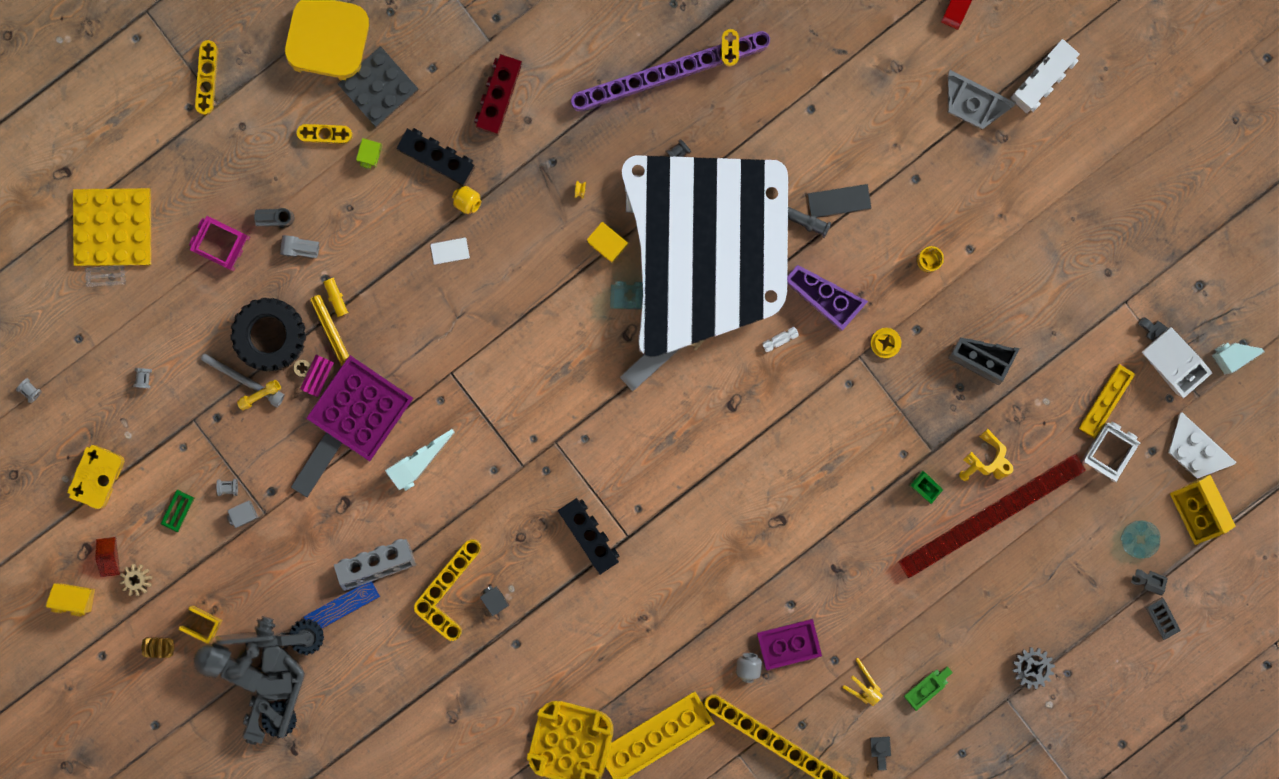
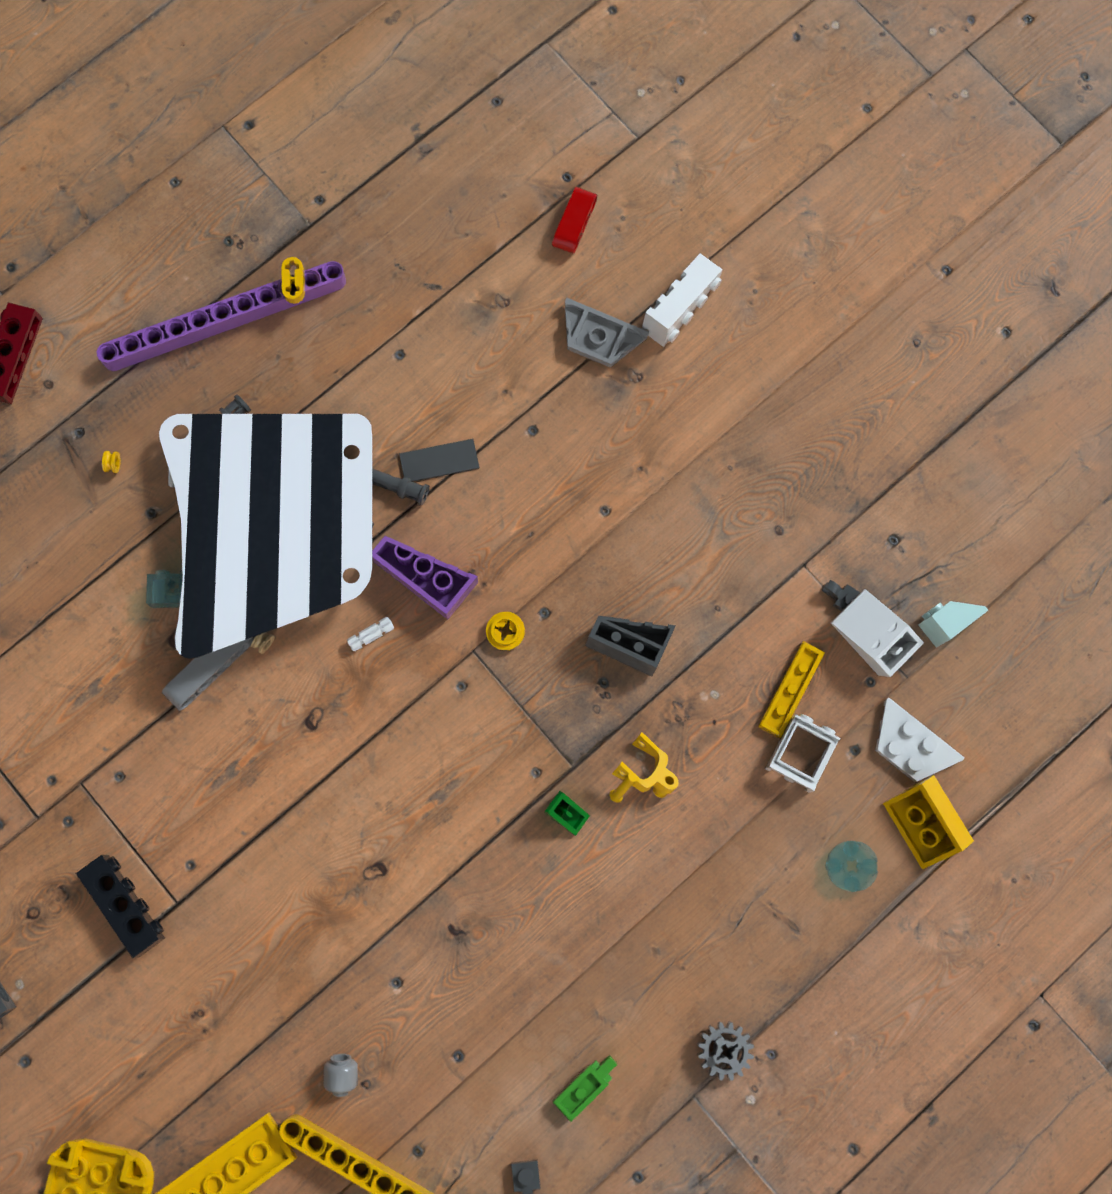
camera: 10 degrees left, 10 degrees down
(607, 242) = (144, 523): yellow piece -> none
(789, 644) = (395, 1038): magenta plate -> none
(871, 695) = (509, 1102): yellow plant -> none
(930, 259) = (555, 522): yellow wheel -> none
(992, 515) = (653, 847): clear red beam -> none
(1153, 581) = (872, 920): dark grey plate -> none
(1155, 604) = (879, 952): dark grey slope -> none

